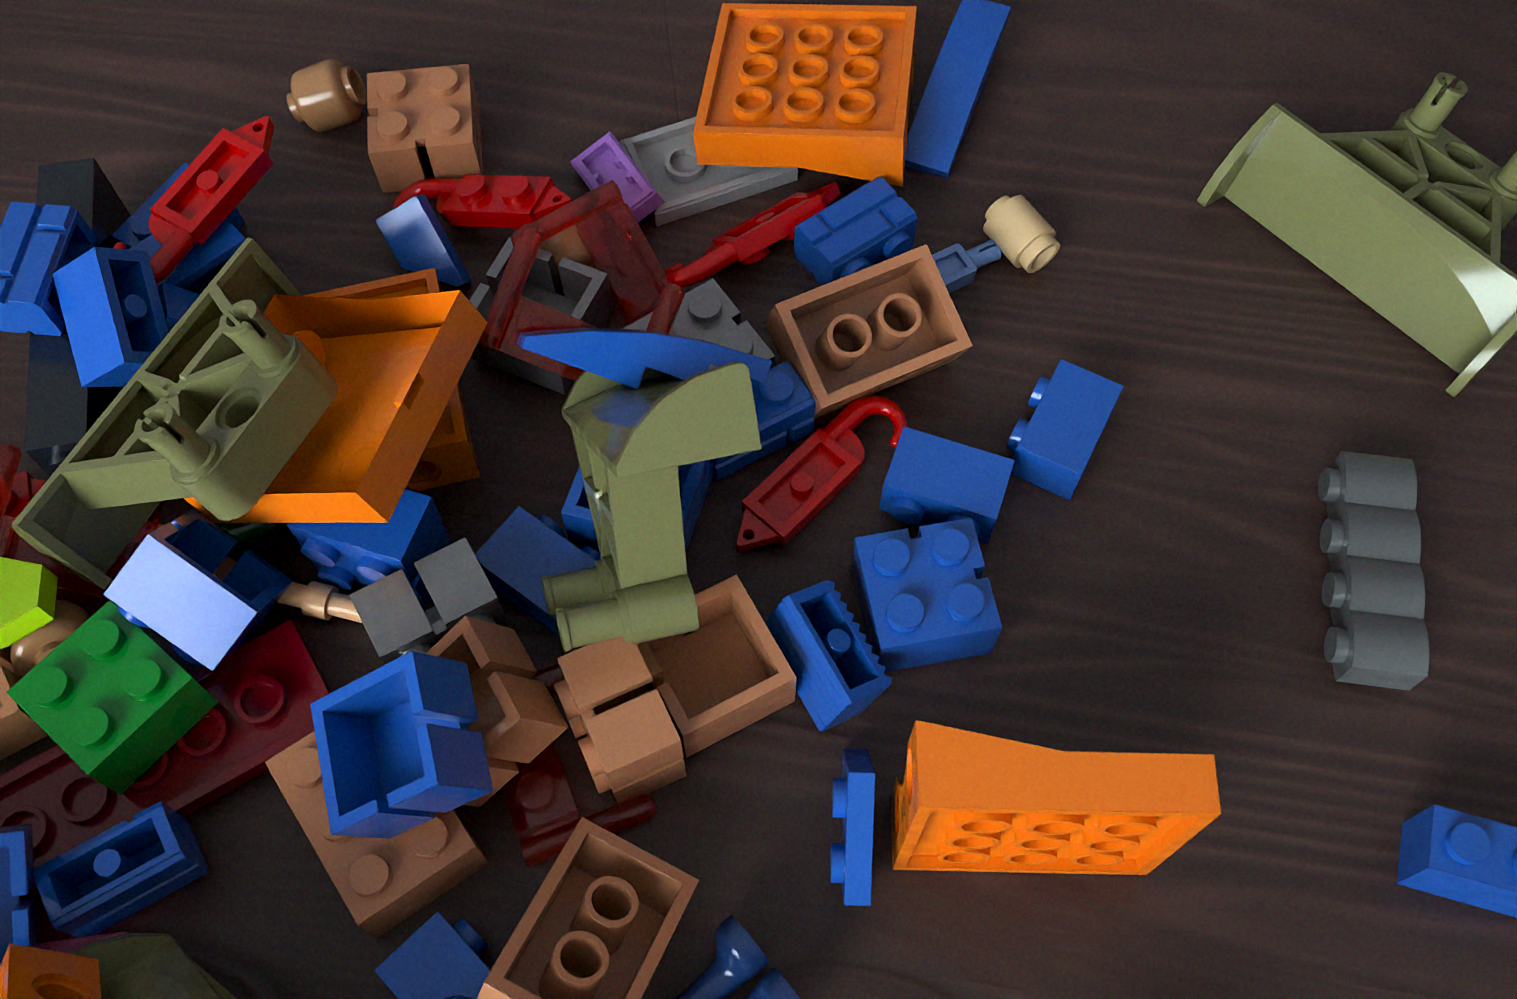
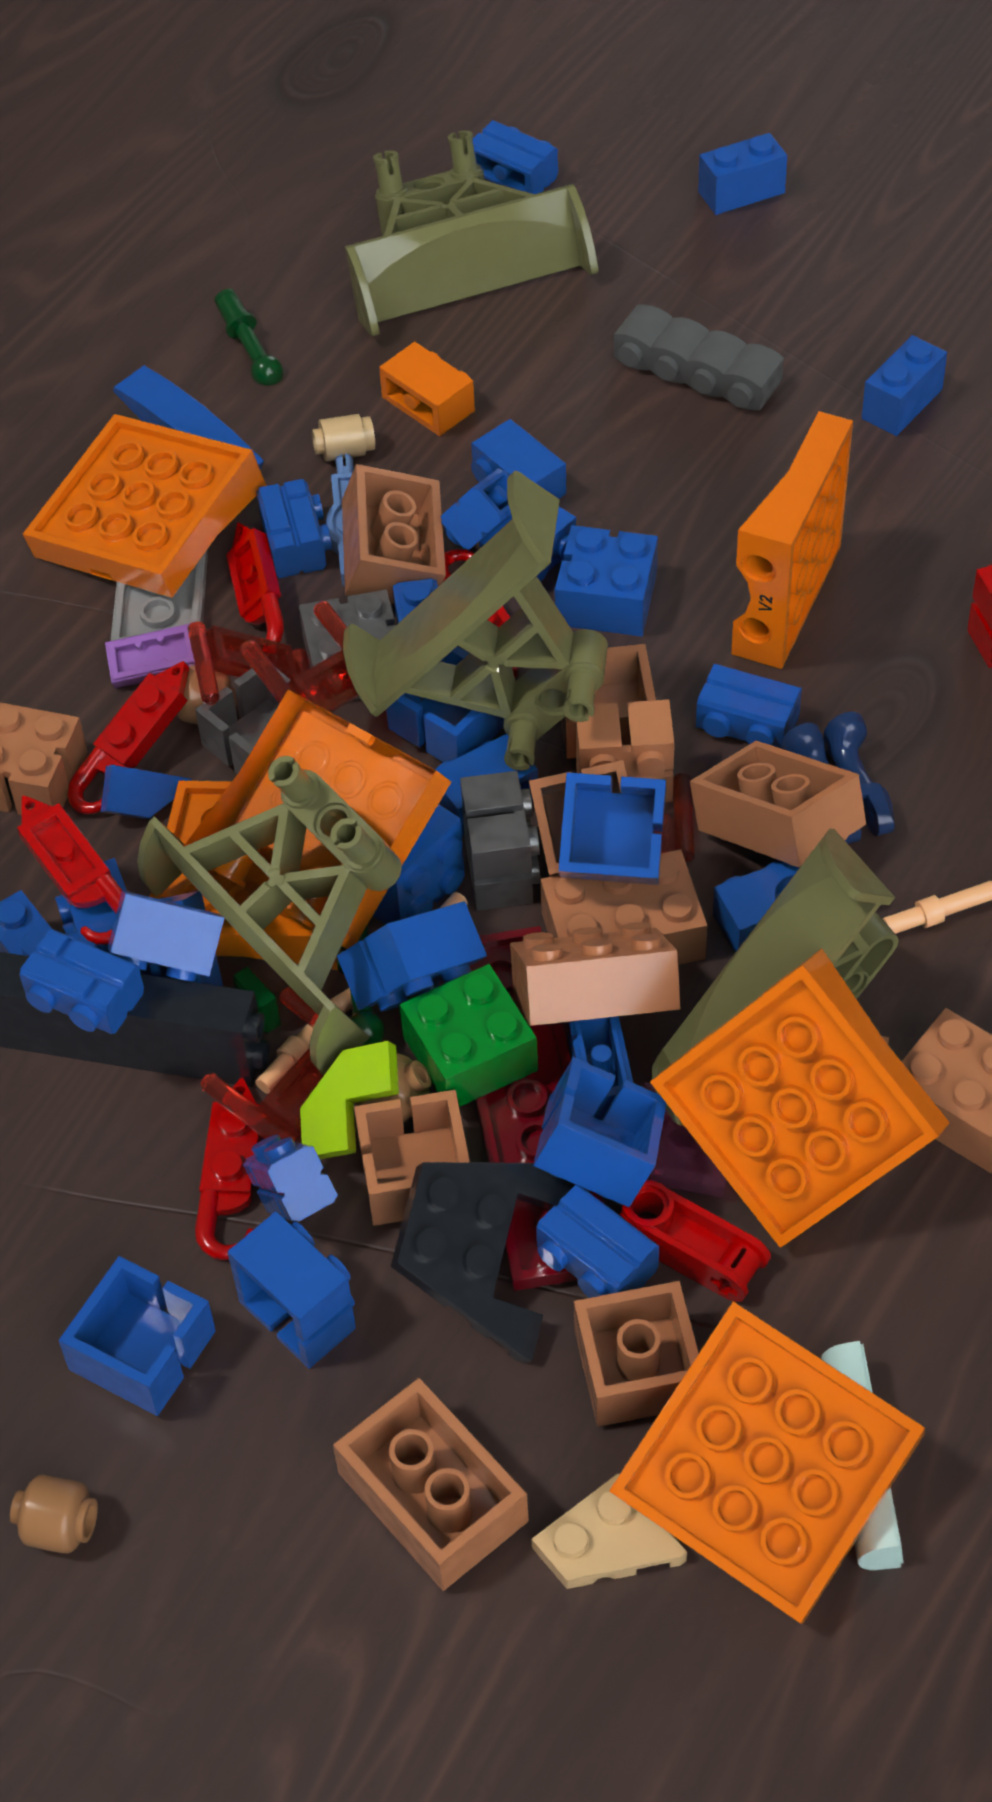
camera: 65 degrees left, 10 degrees down
(208, 811) = (594, 974): none -> nougat brick
(627, 352) = (371, 634): blue slope -> none
(784, 850) = (747, 706): none -> blue brick
(827, 655) = (635, 626): blue brick -> none
(854, 803) = (748, 651): blue wing -> none
(954, 411) = (478, 511): none -> blue brick
(1094, 124) = (265, 369): none -> dark green pin
(1143, 287) = (427, 388): none -> orange brick

